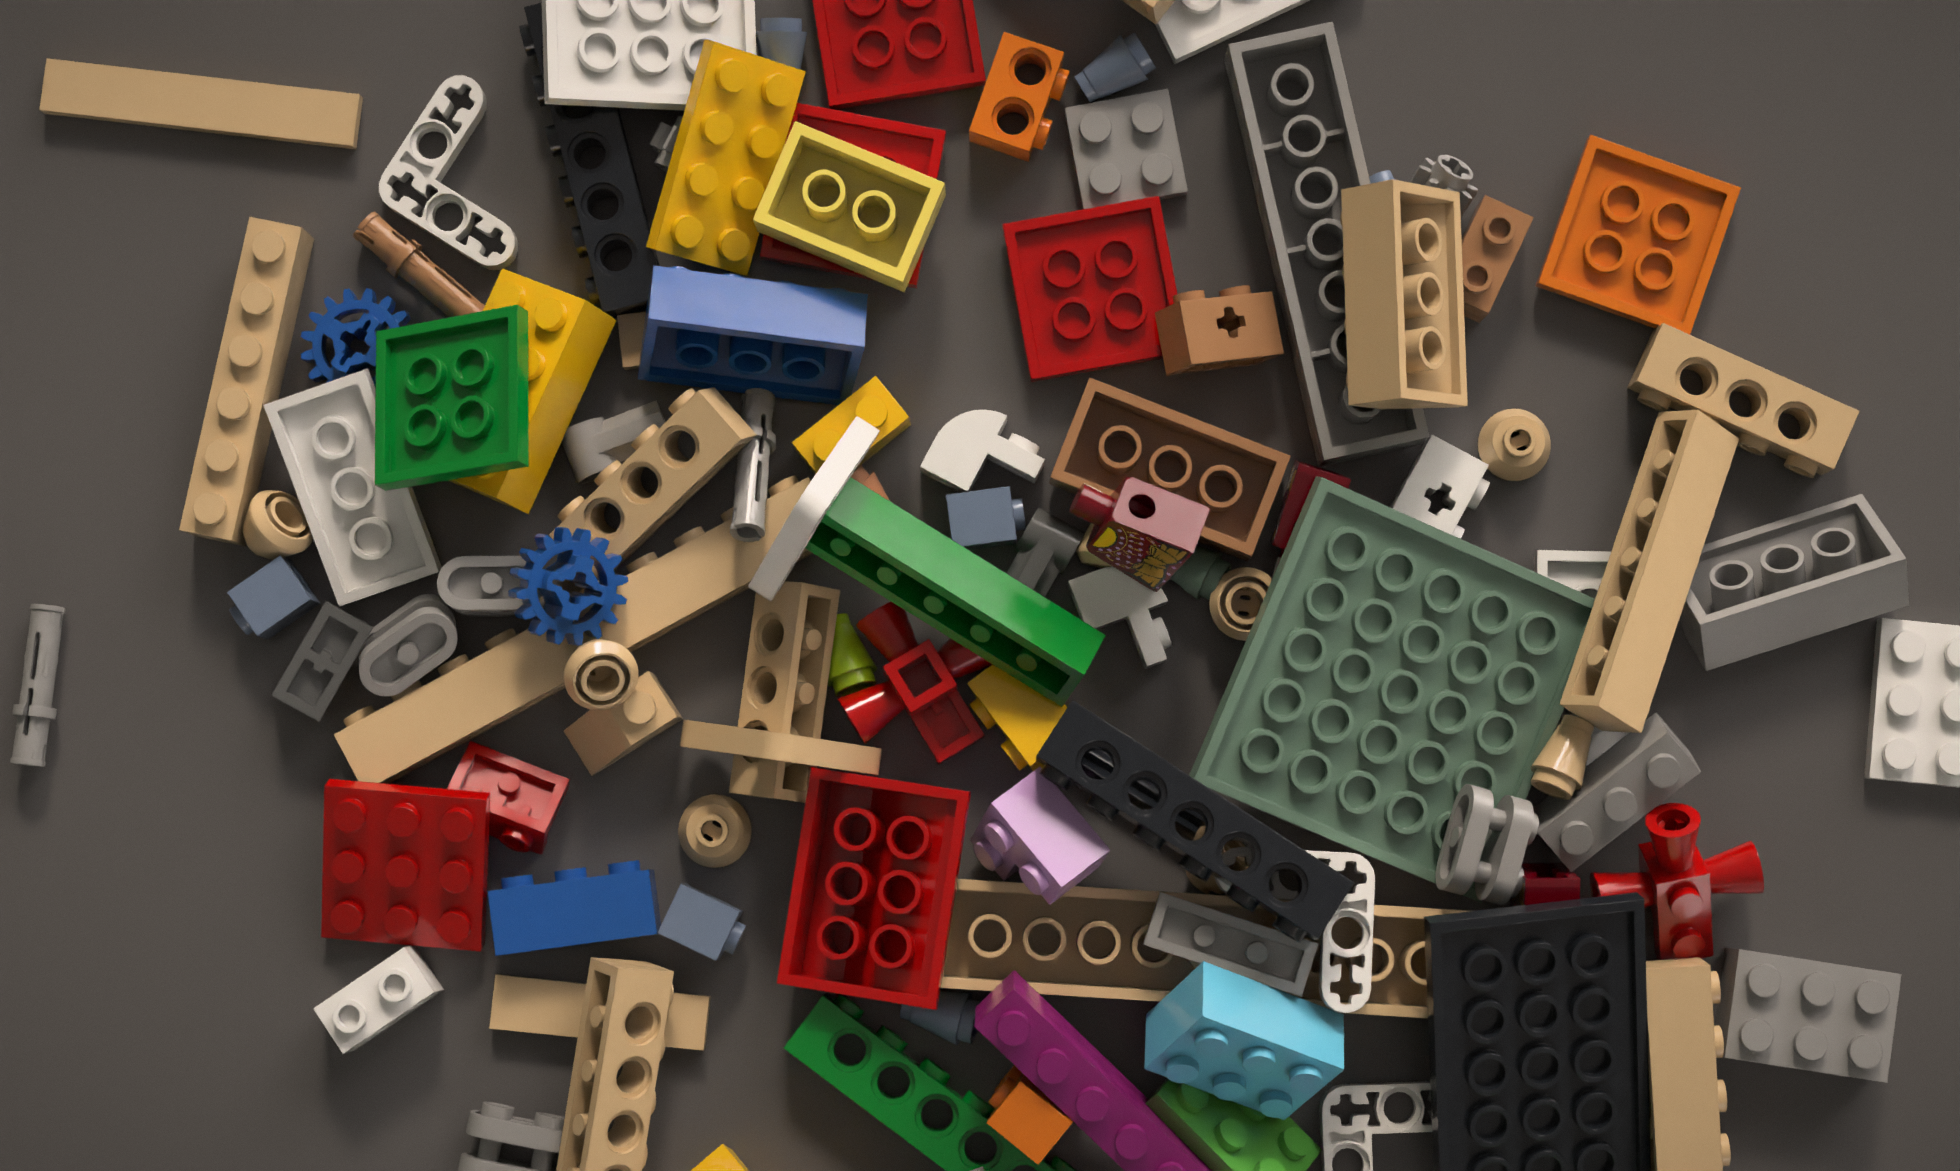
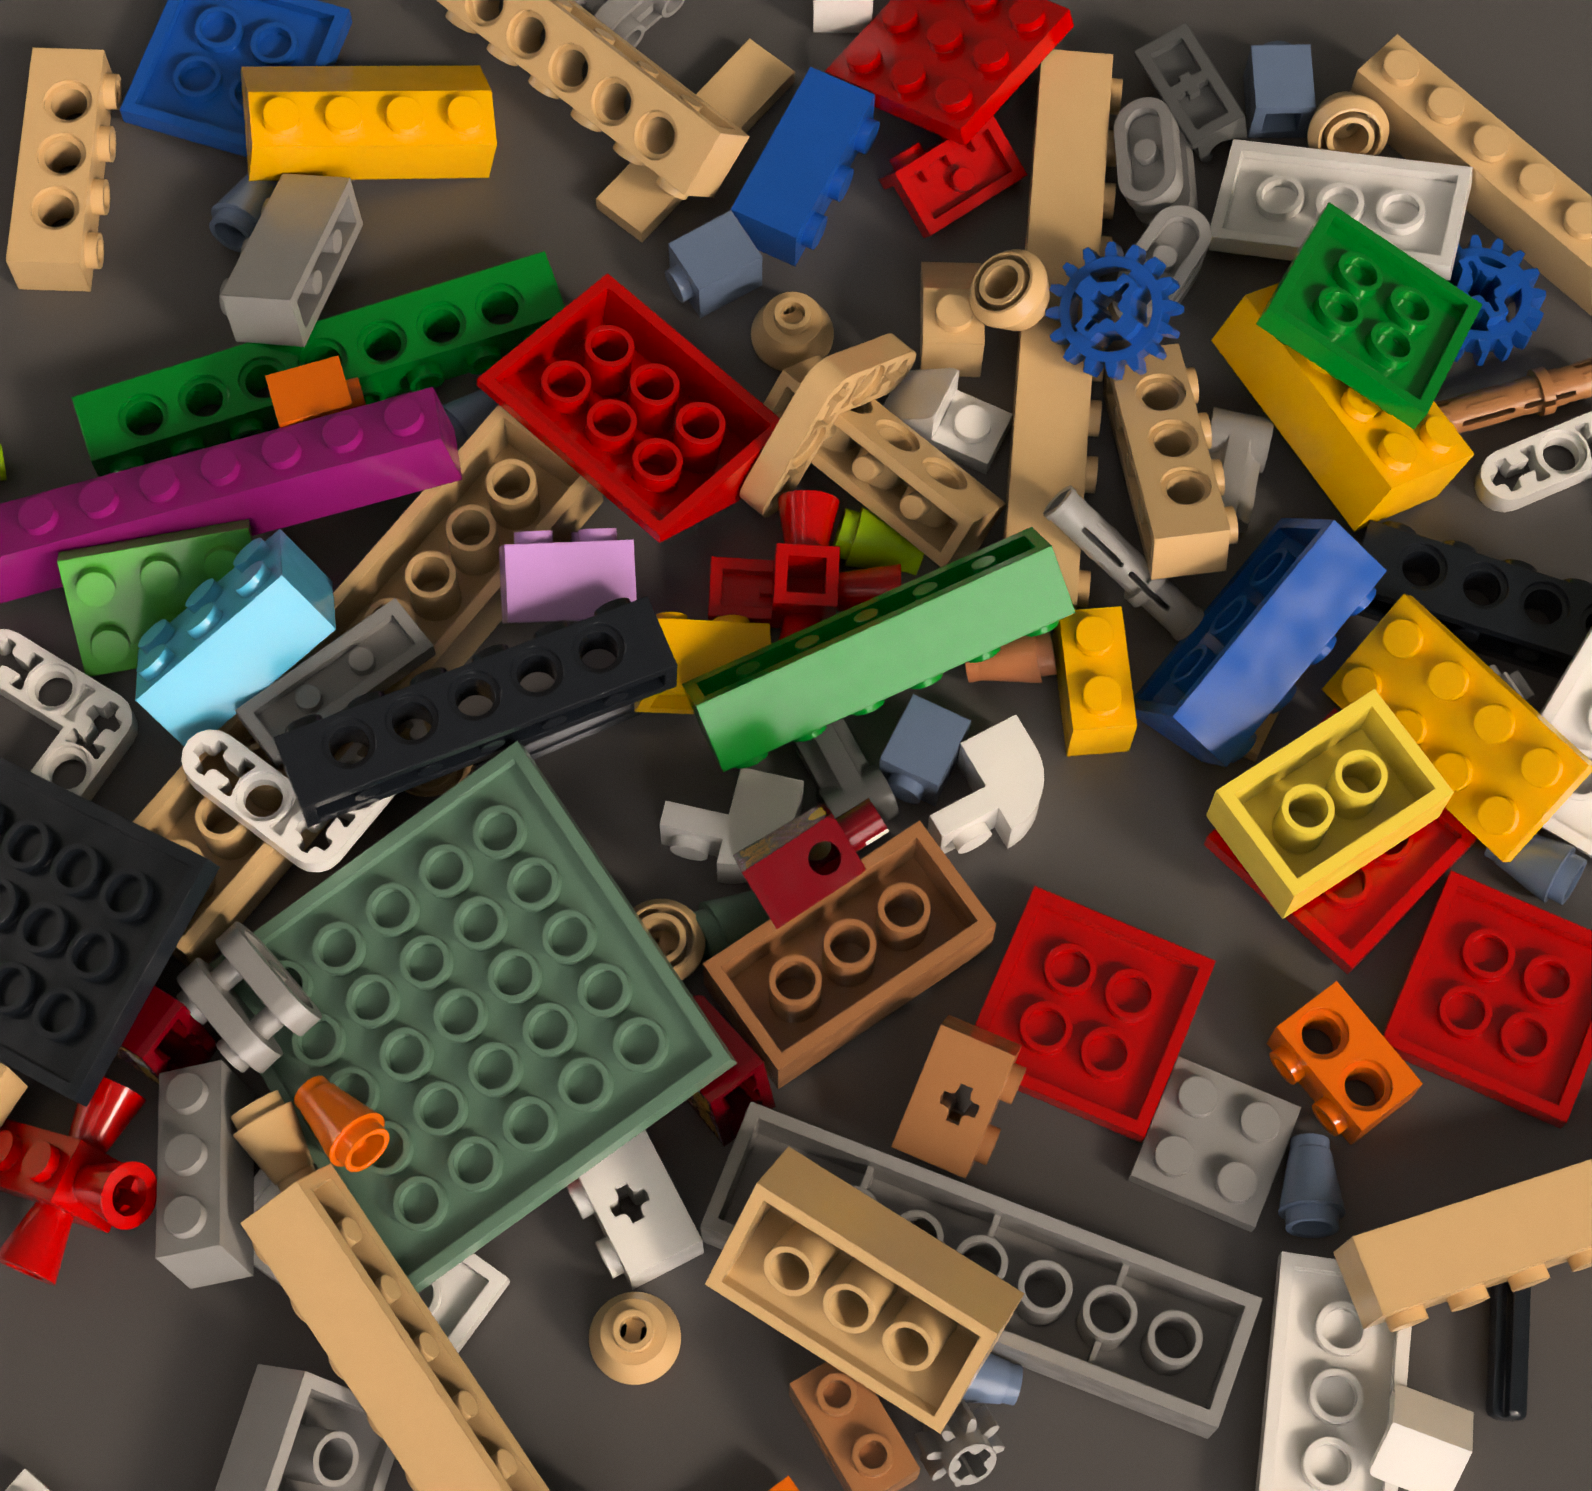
camera: 120 degrees right, 15 degrees down
(709, 672) = (948, 418): none -> white slope
(812, 508) = (1038, 536): white beam -> none
(1527, 718) = (342, 1124): none -> orange cone

